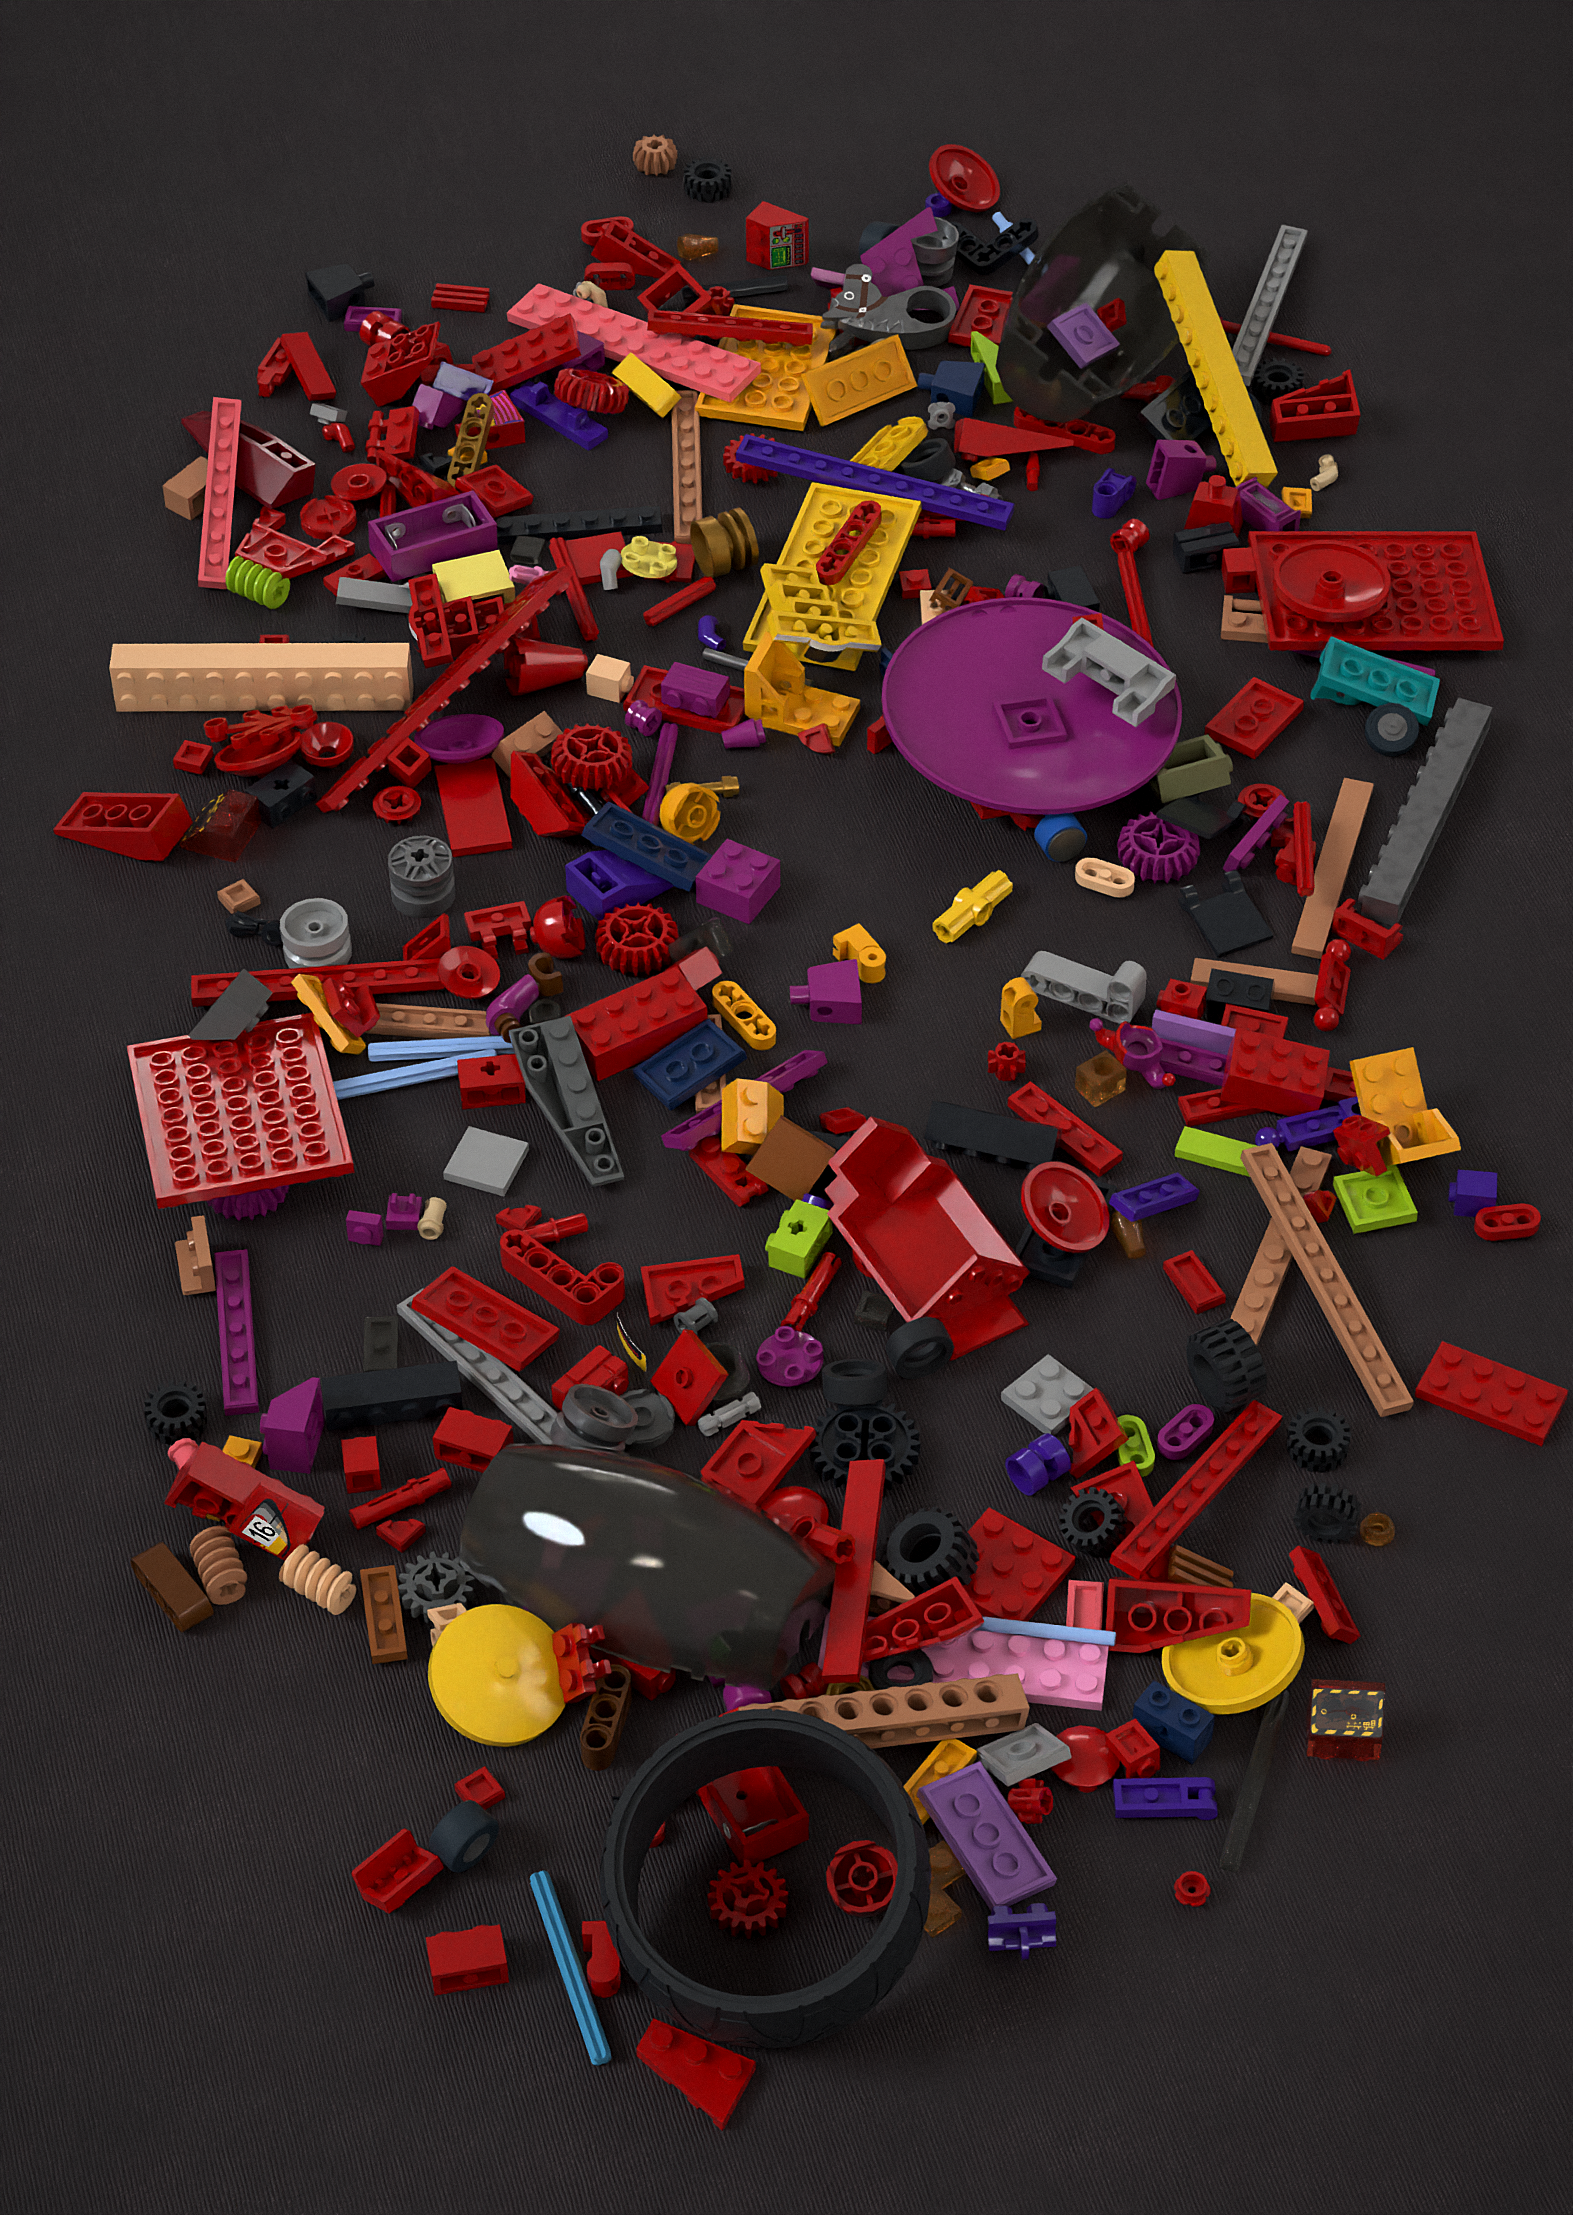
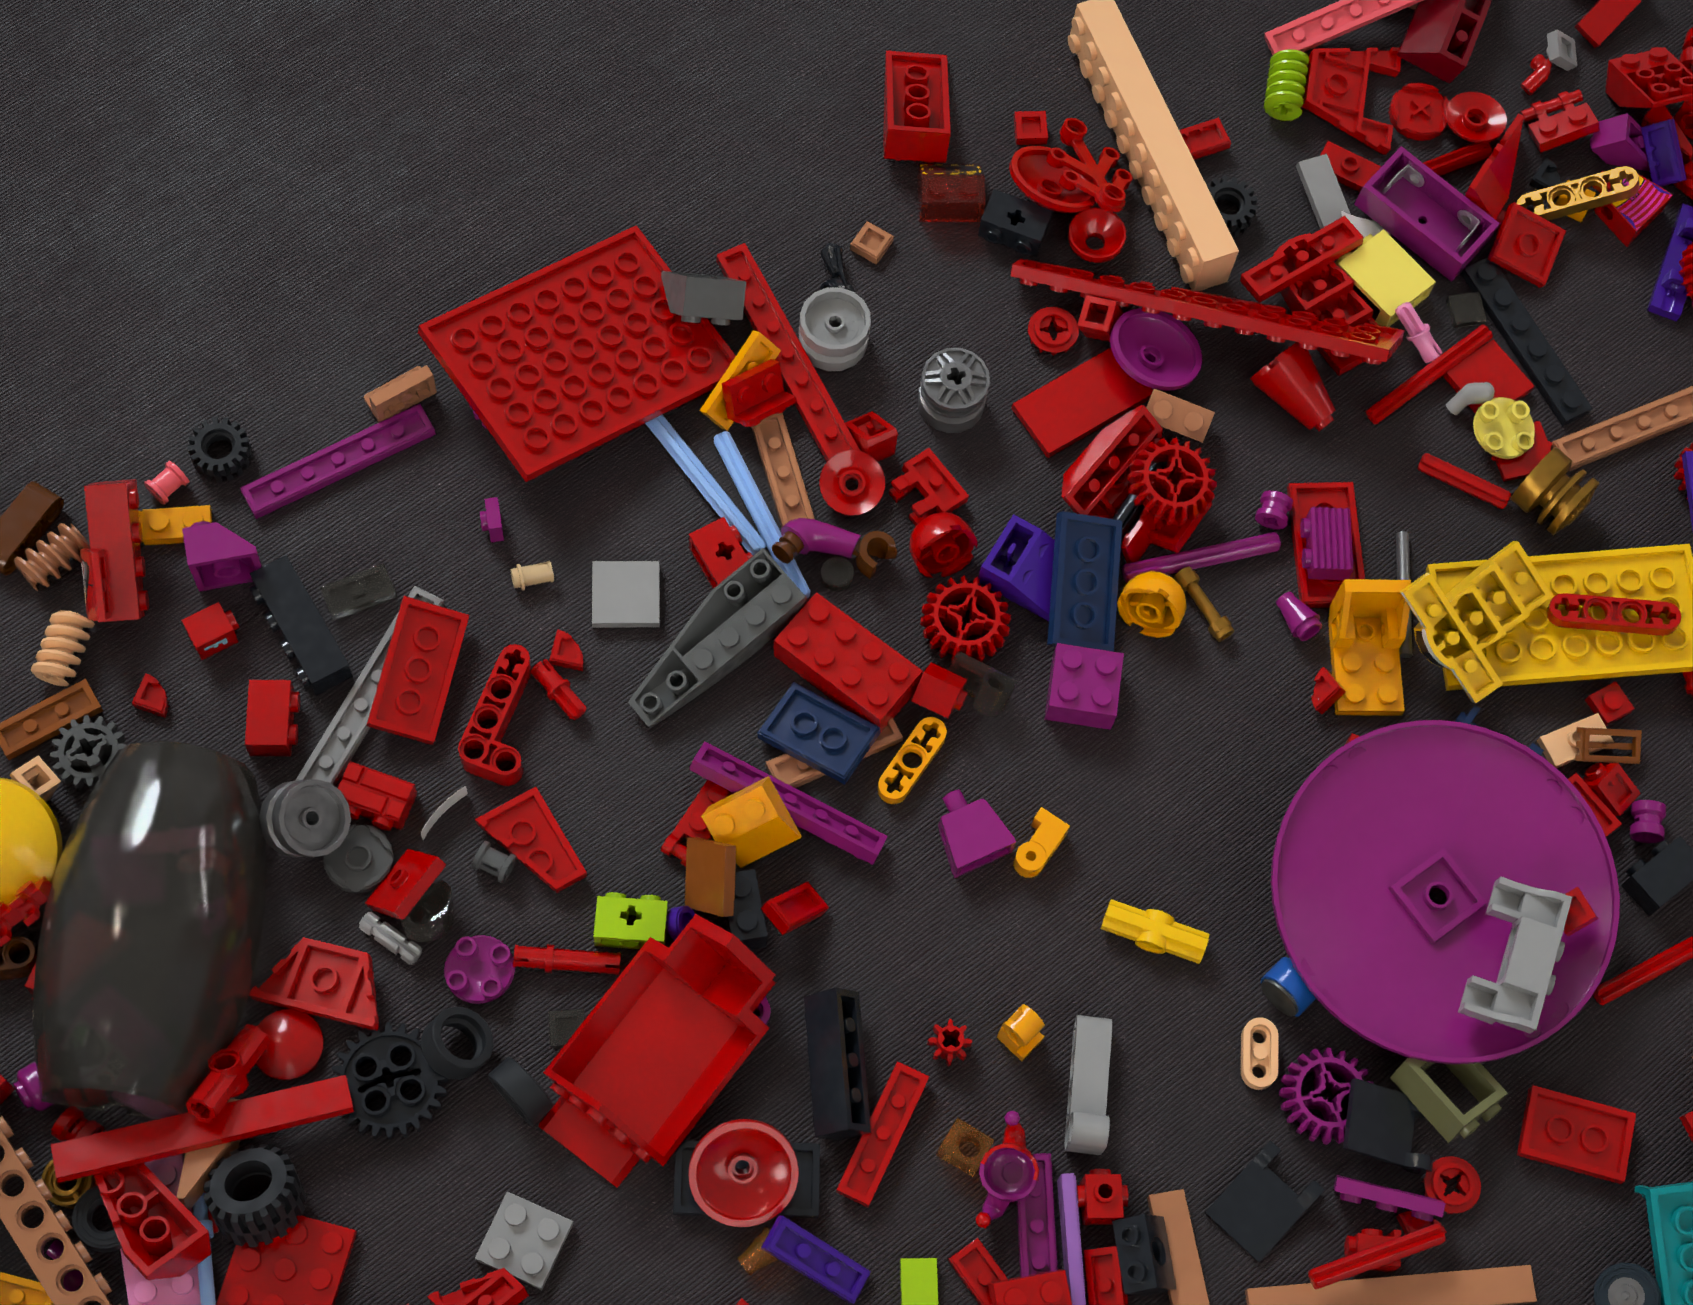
camera: 60 degrees right, 20 degrees up
(403, 1212) = (533, 546): magenta tile -> none
(412, 1493) = (196, 689): red pin -> none
(609, 678) = (1314, 456): light nougat brick -> none
(707, 634) = (1428, 525): dark purple arm -> none
(1038, 1464) = (418, 1260): dark purple wheel -> none

